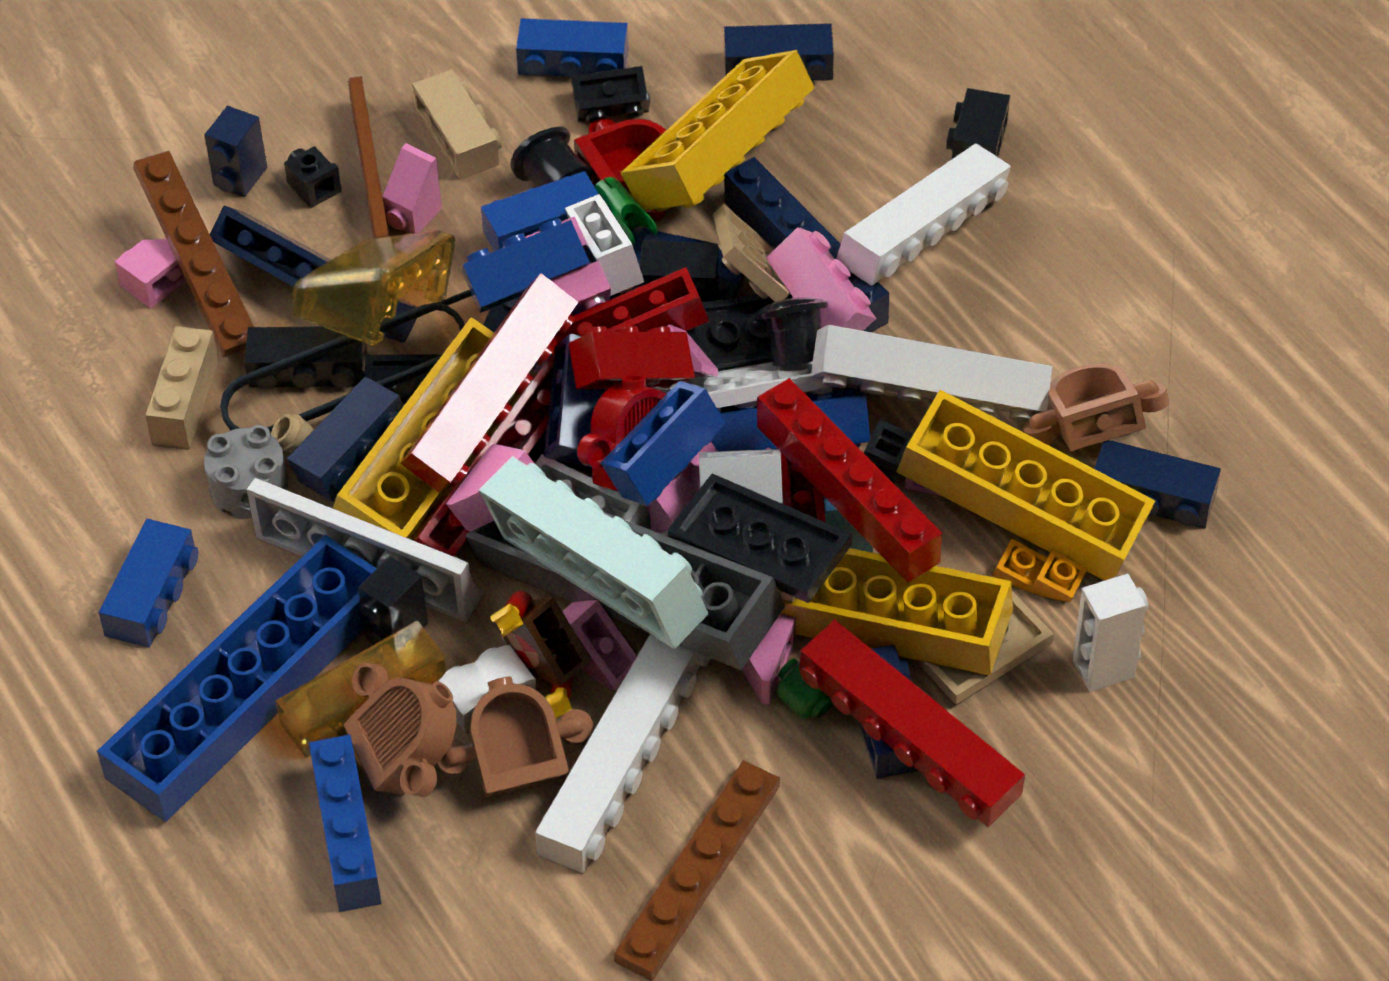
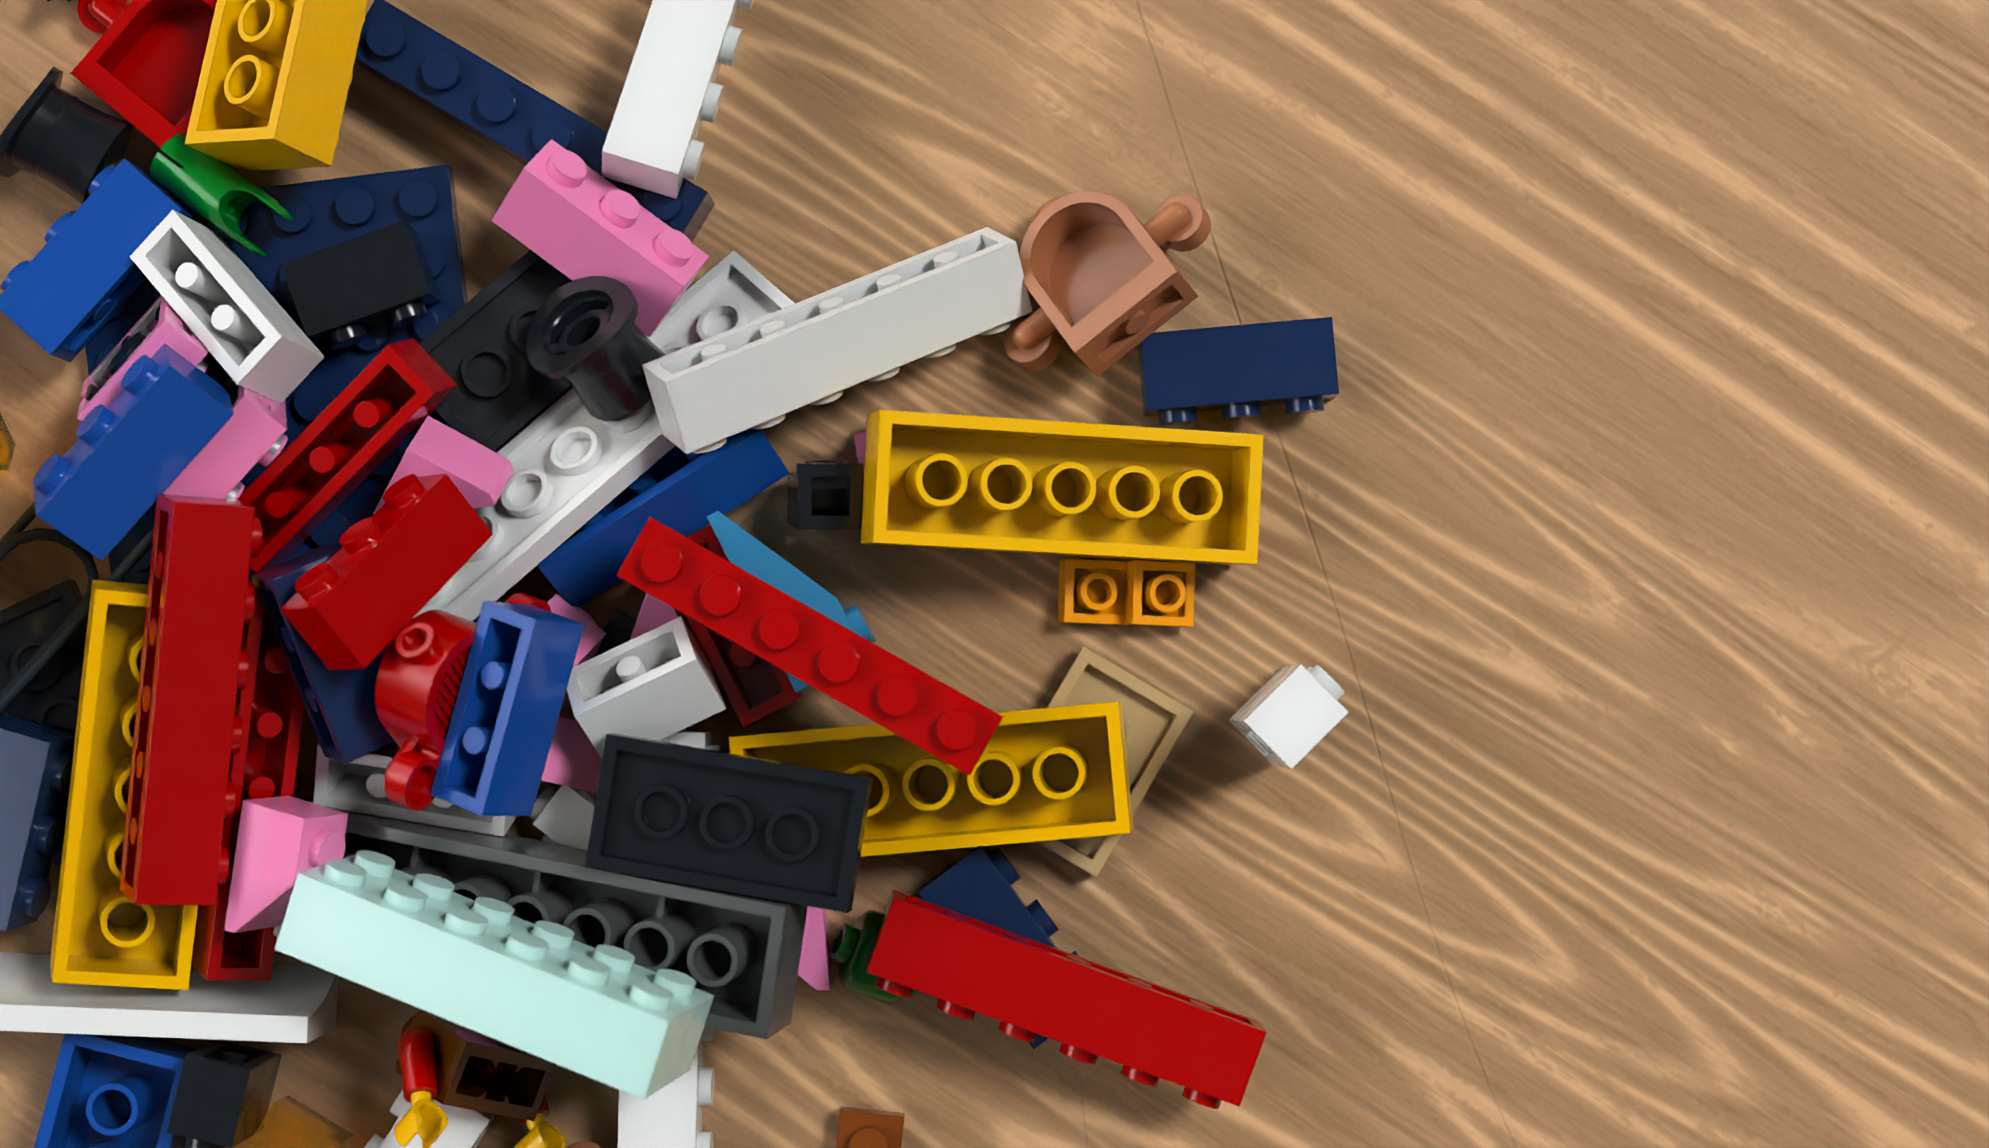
camera: 25 degrees left, 35 degrees up
(746, 253) = (446, 203): tan plate -> none

